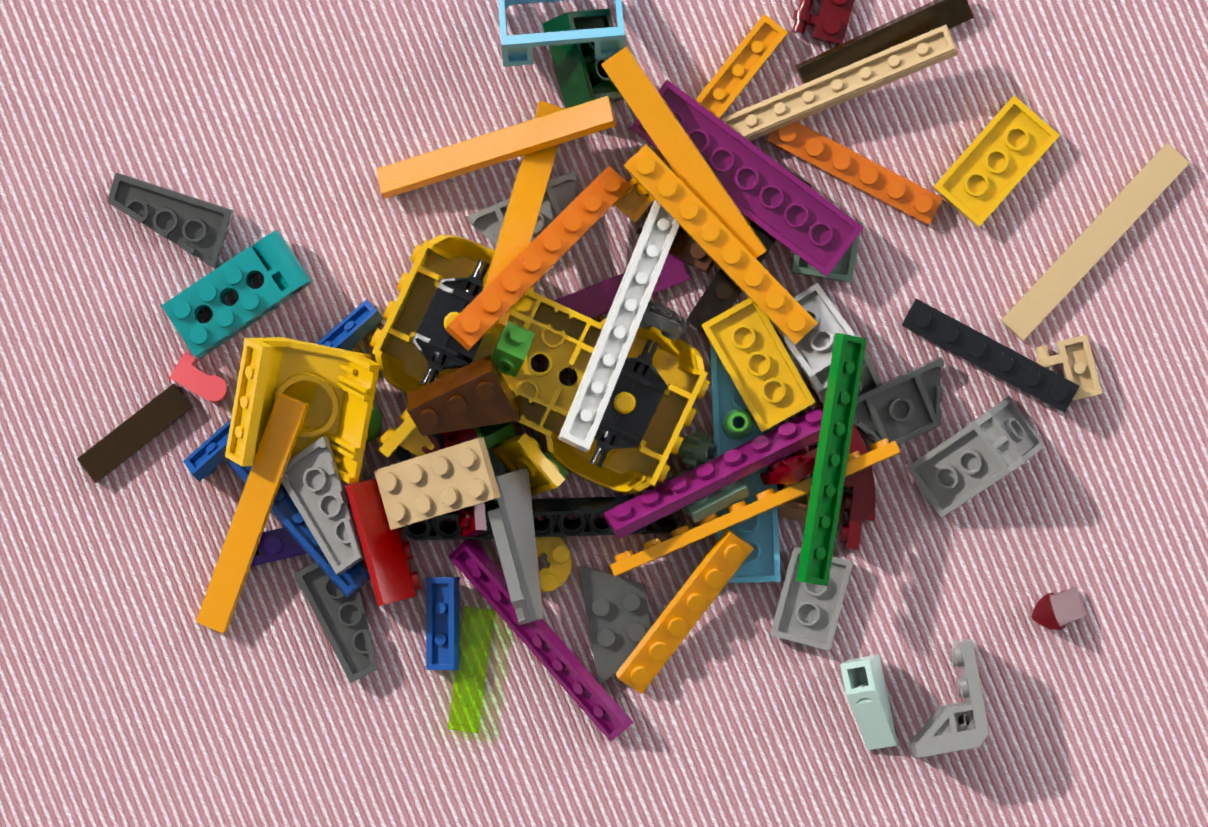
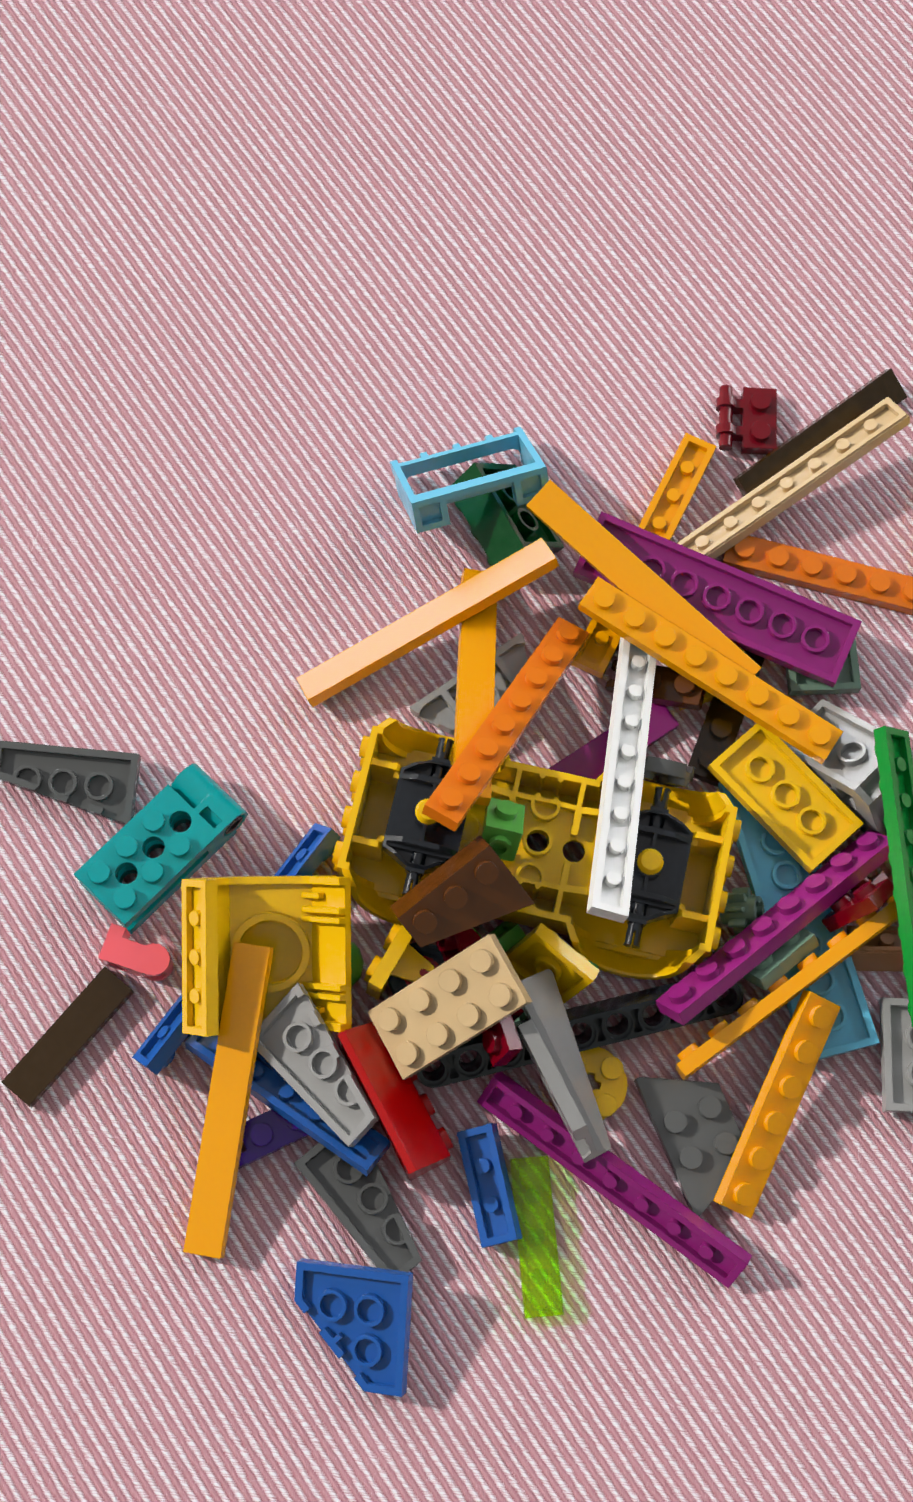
camera: 20 degrees left, 15 degrees down
(322, 701) = (361, 1318): none -> blue plate
(733, 432) = (775, 872): bright green cone -> none

